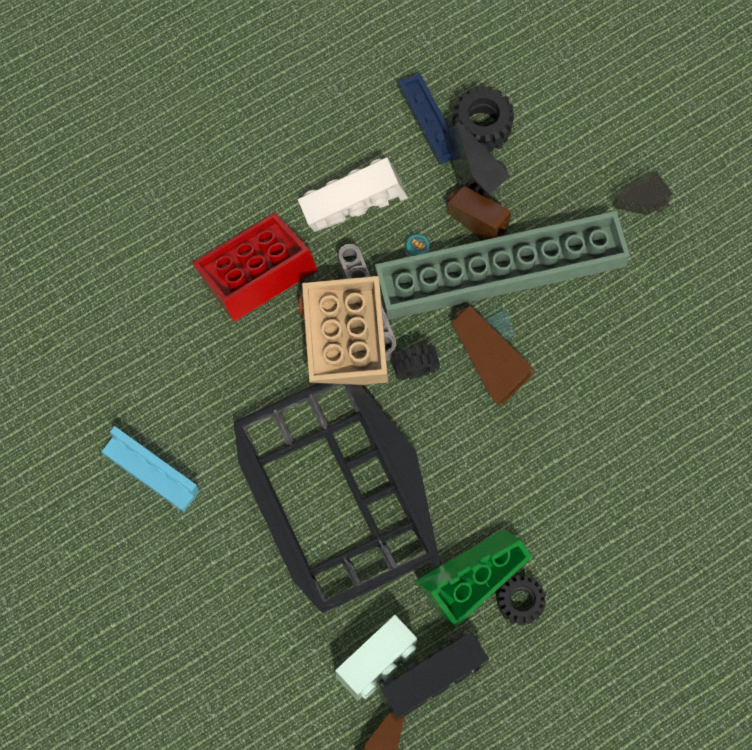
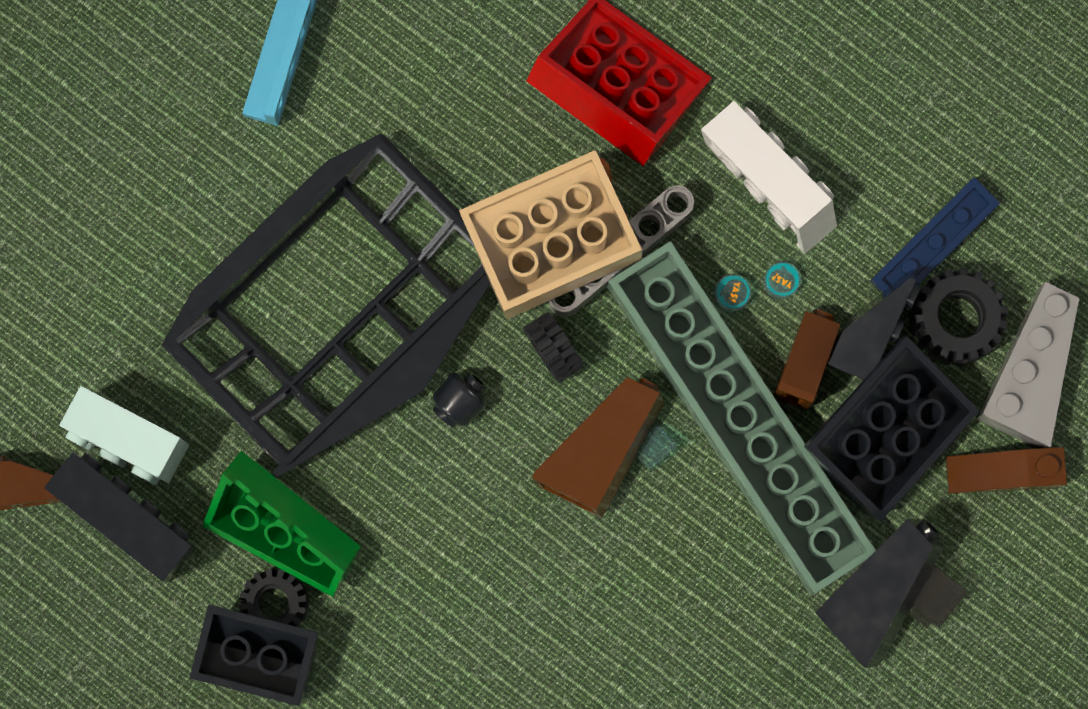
camera: 75 degrees right, 10 degrees up
(420, 215) = (782, 280): none -> clear light blue tile
(427, 433) = (459, 399): none -> black head
(529, 89) = (1032, 374): none -> light grey wedge
(543, 176) = (891, 429): none -> black slope
(555, 620) = (255, 655): none -> black slope
(586, 126) = (1006, 471): none -> reddish brown slope
(642, 220) = (882, 591): none -> black slope

